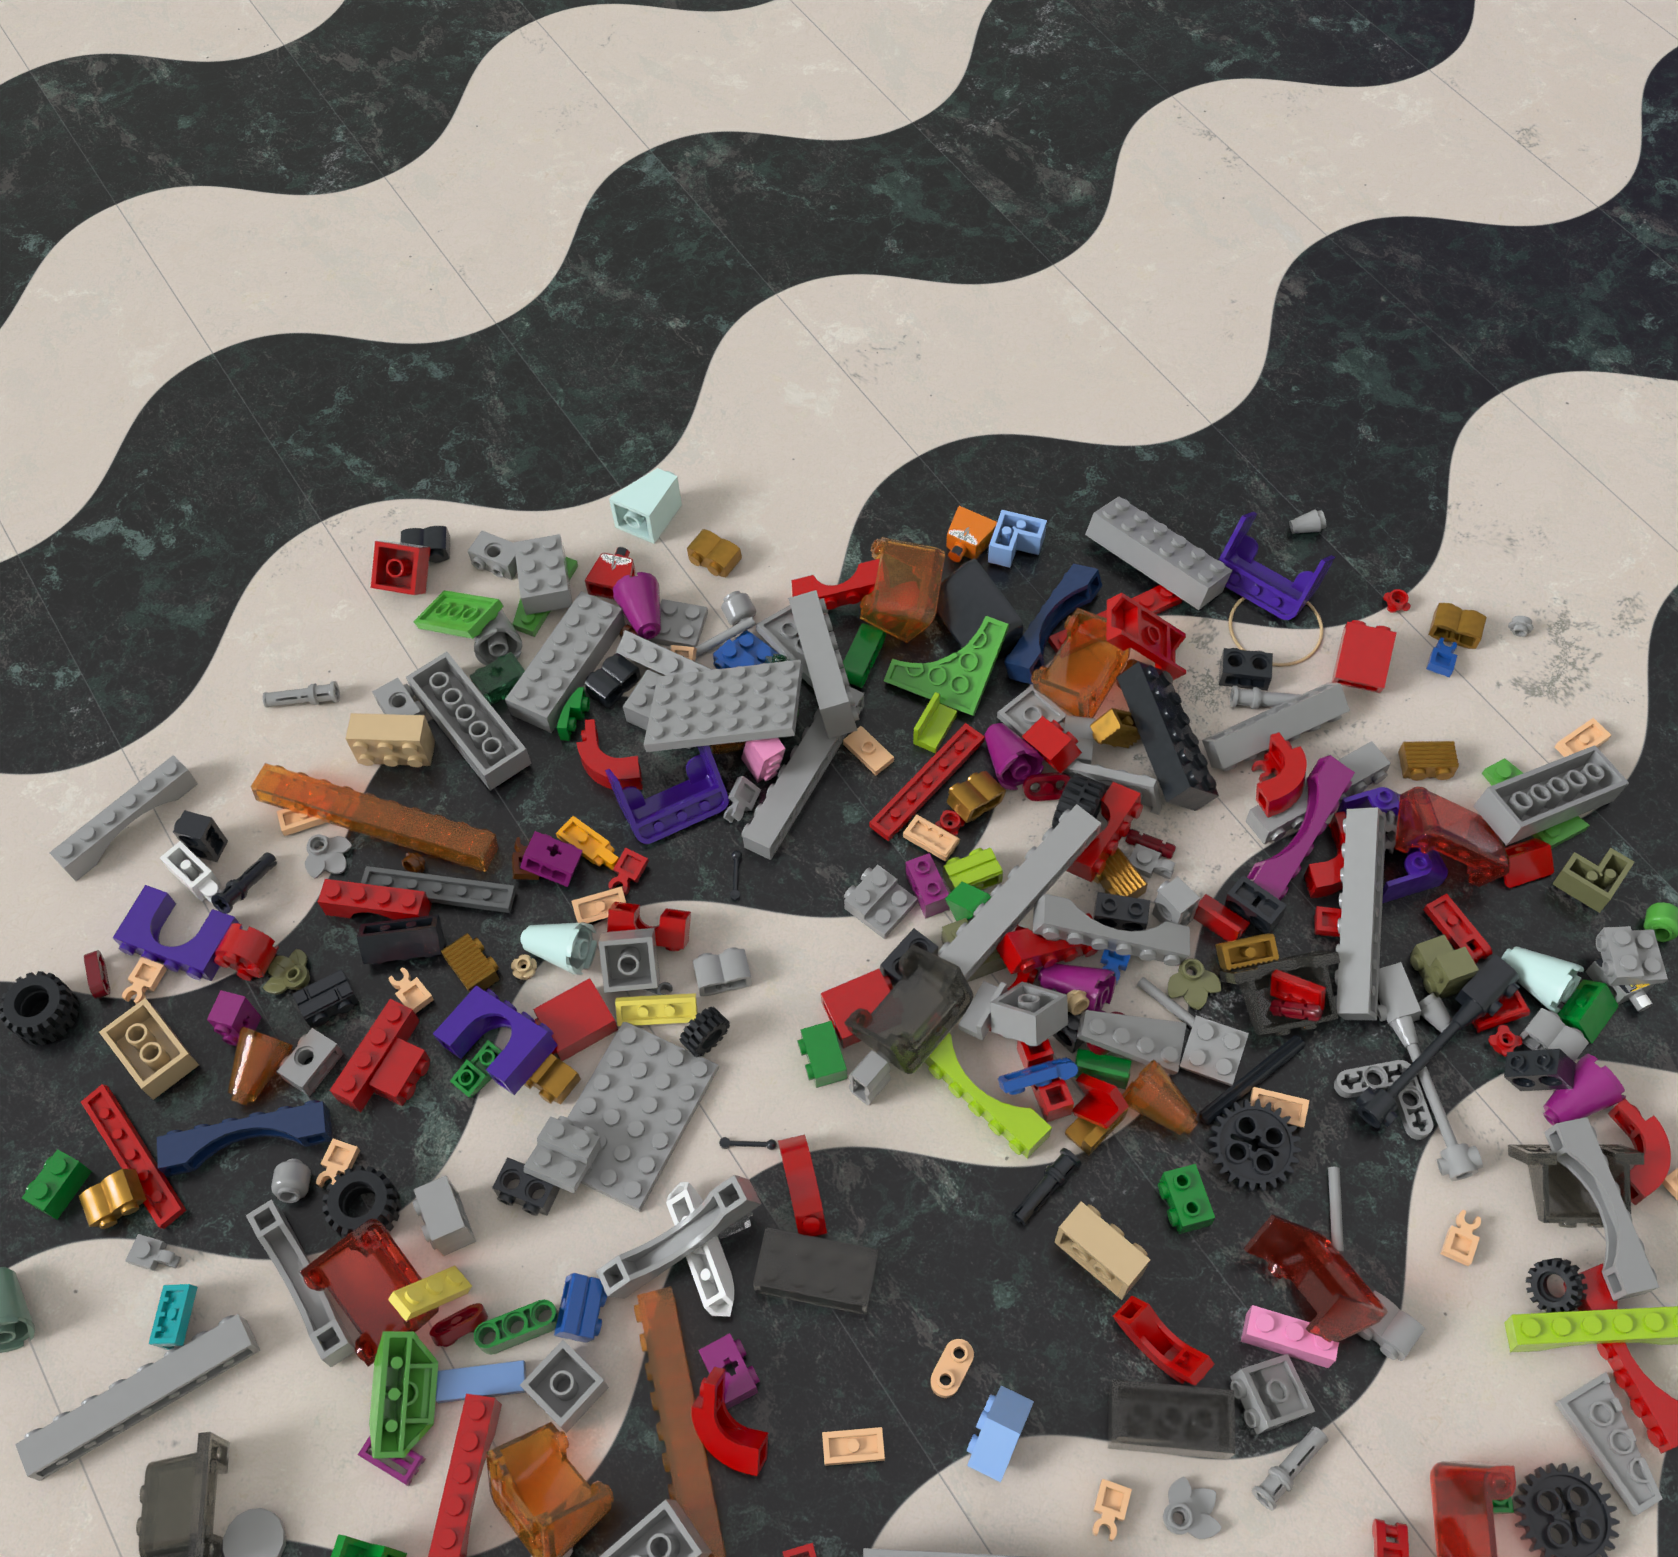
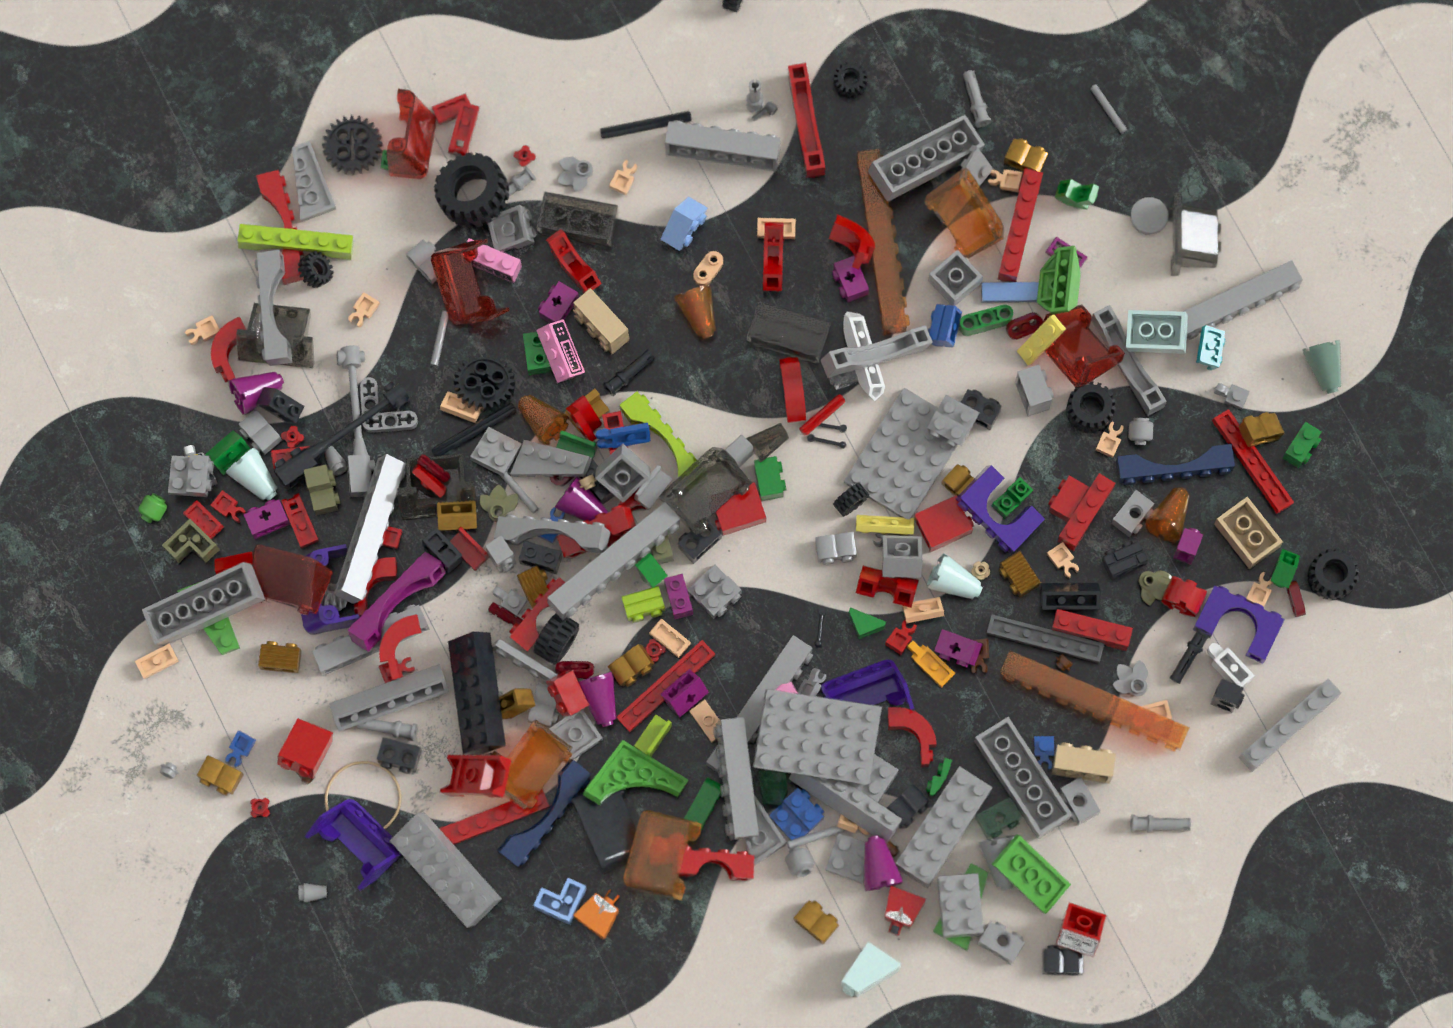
camera: 175 degrees left, 15 degrees up
(101, 999) = (1285, 569): none -> green brick
(248, 1318) = (1156, 331): none -> light aqua brick
(444, 763) = (1044, 749): none -> blue plate
(675, 880) = (864, 623): none -> green slope
(758, 1149) = (822, 415): none -> red axle
(768, 1123) = (811, 438): none -> black hinge
(830, 1103) = (768, 441): none -> clear smoke wing
(852, 1386) = (773, 256): none -> red arch
(902, 769) = (684, 693): none -> magenta brick
(959, 1293) = (698, 310): none -> clear orange cone
(1154, 1196) = (560, 351): none -> bright pink brick
(1171, 1261) = (558, 293): none -> magenta brick
(1270, 1531) = (524, 161): none -> red plate
(1387, 1437) = (484, 206): none -> black tyre
(1506, 924) = (275, 514): none -> magenta brick
(1563, 937) = (227, 505): none -> red plate
(1586, 914) = (203, 519): none -> red plate

